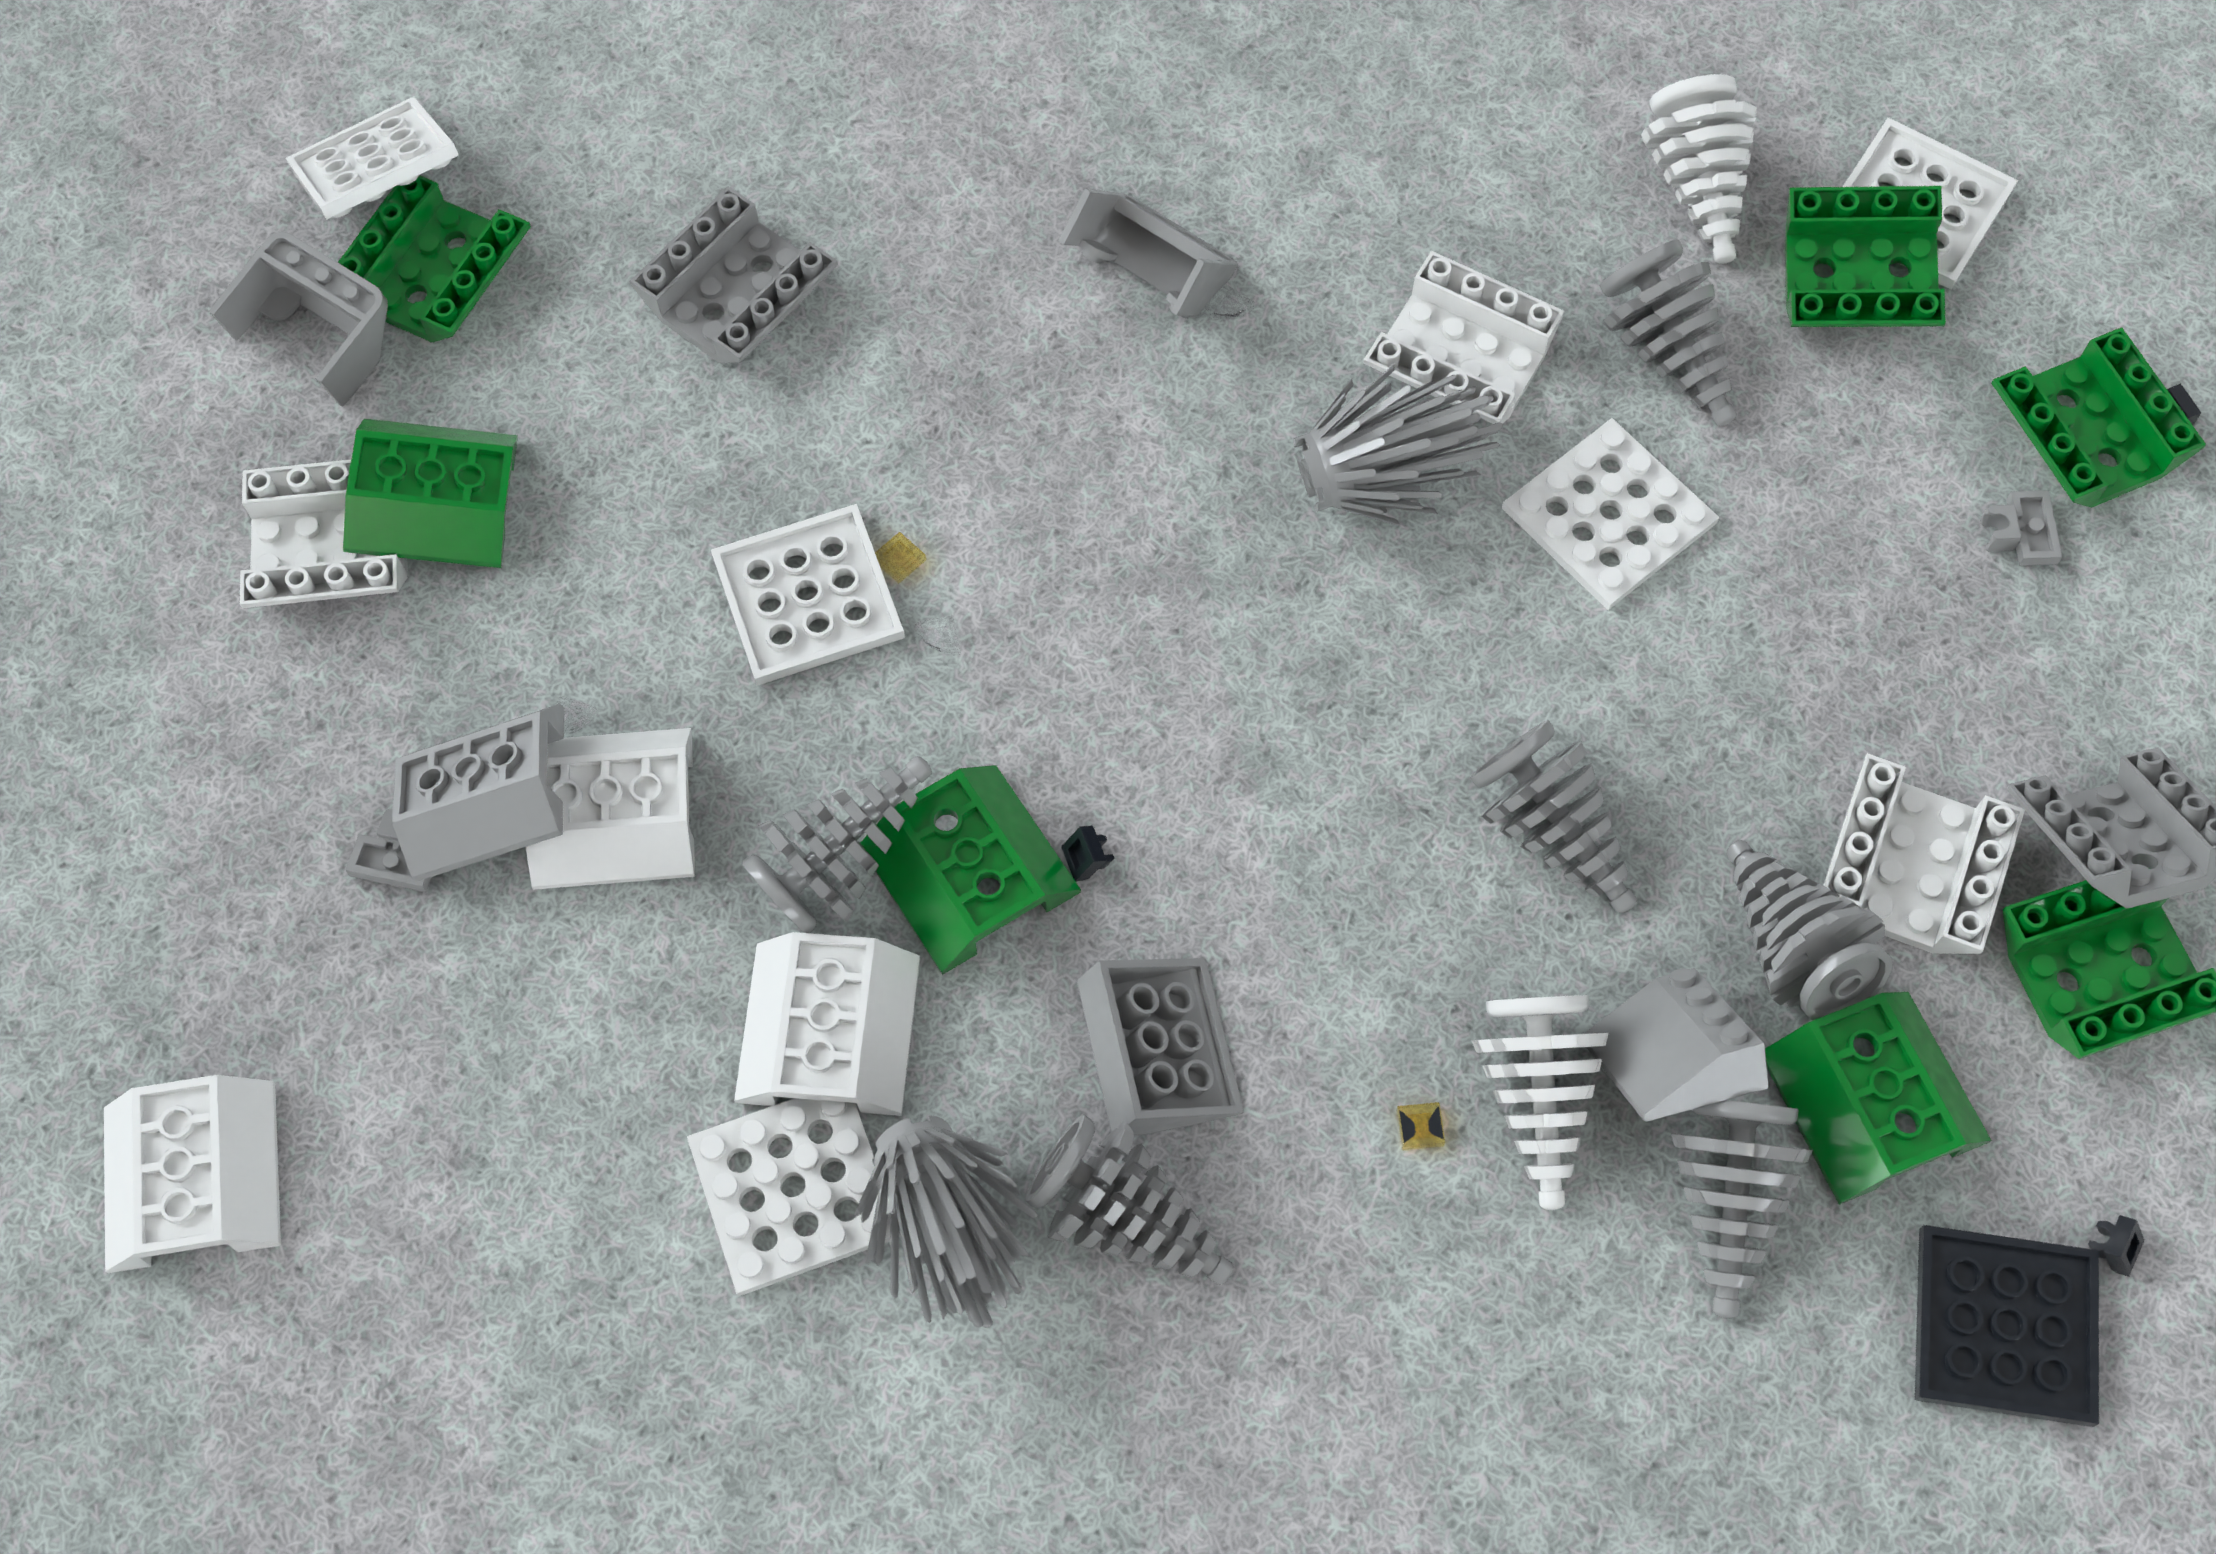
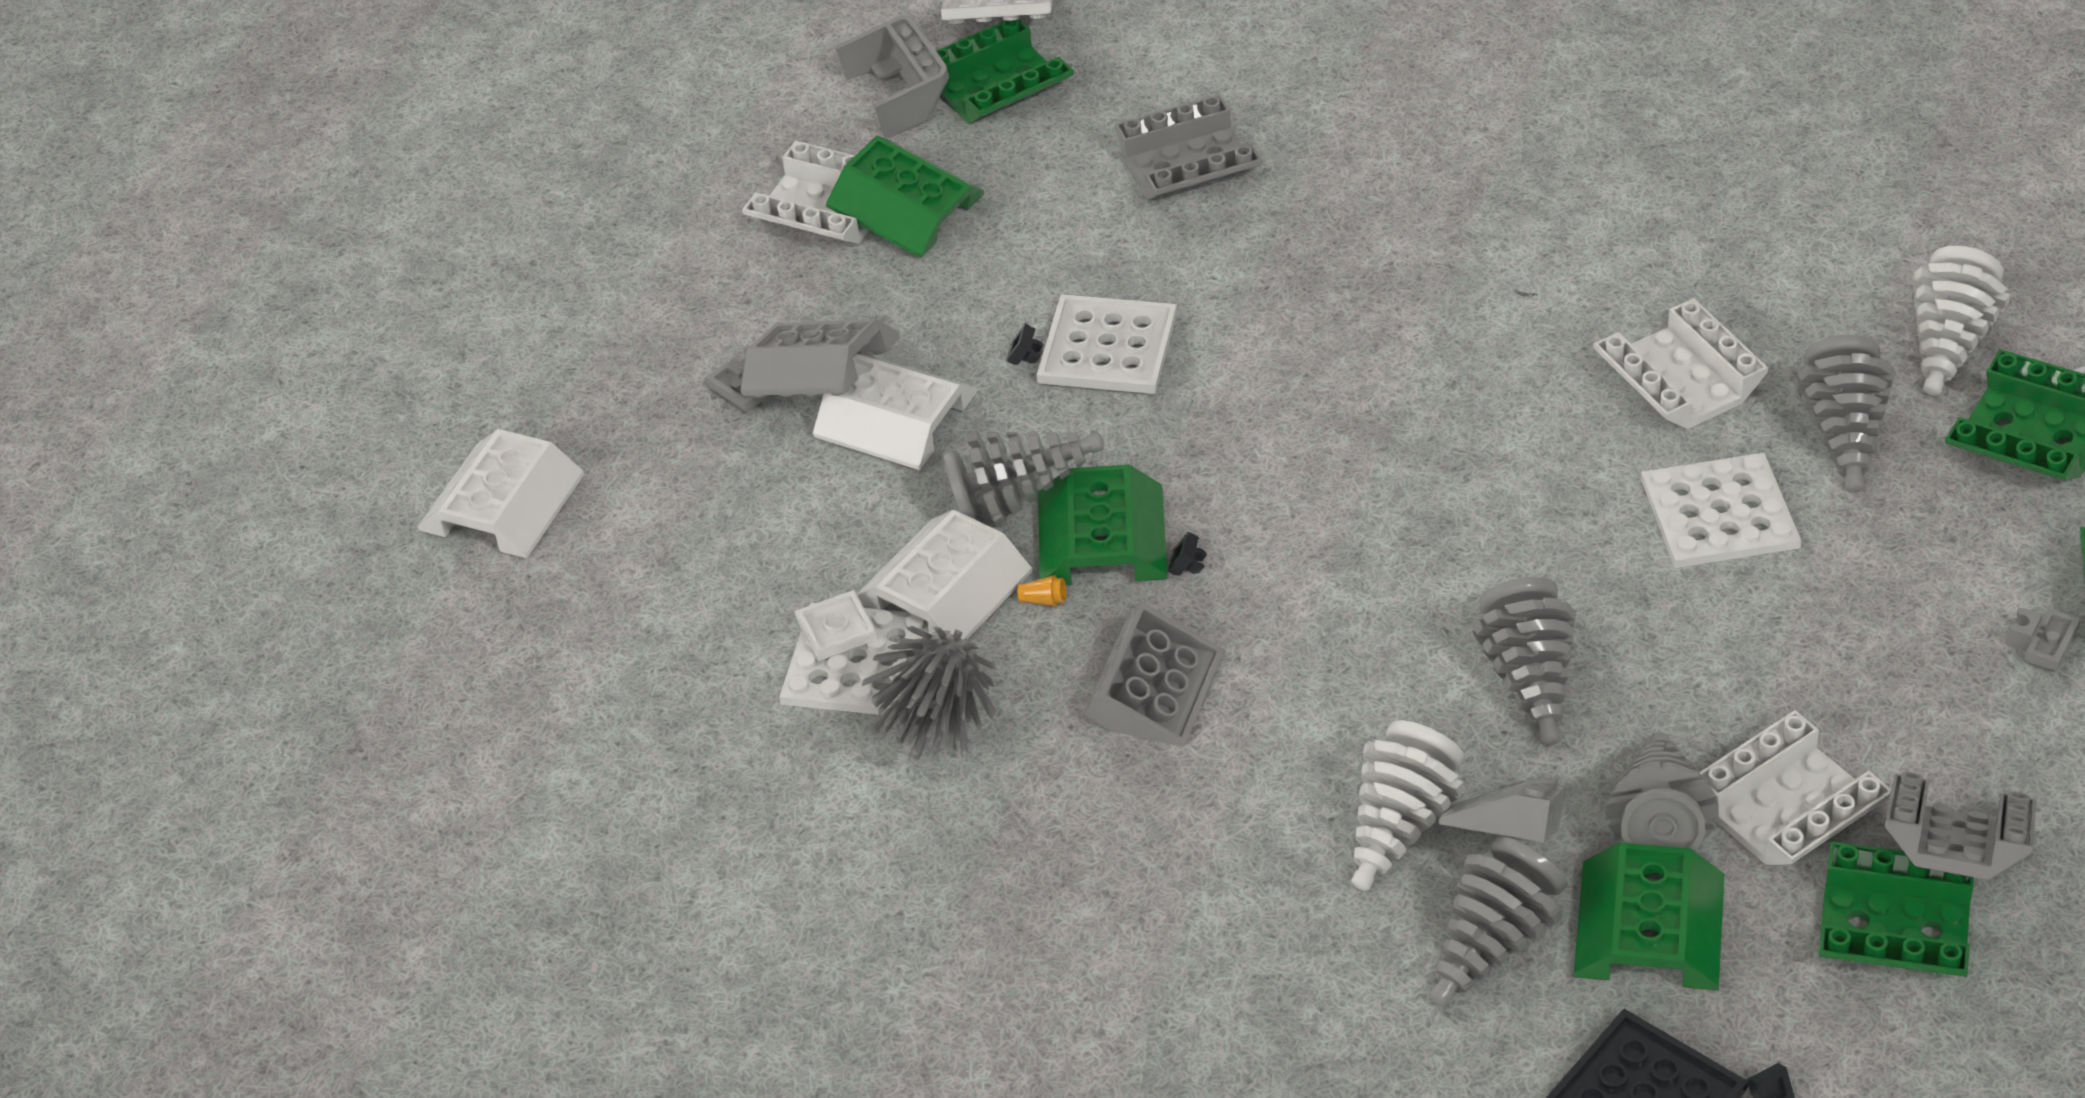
camera: 35 degrees right, 20 degrees down
(709, 643) = (1024, 346): none -> black tile
(746, 1160) = (836, 625): none -> white tile
(899, 557) = (1185, 348): clear yellow tile -> none
(954, 983) = (1045, 591): none -> light orange cone
(1116, 1198) = (1059, 737): light grey plant -> none
(1149, 246) = (1489, 226): light grey windscreen -> none
(1372, 459) = (1551, 388): light grey plant -> none
(1420, 1126) = (1301, 803): clear yellow tile -> none

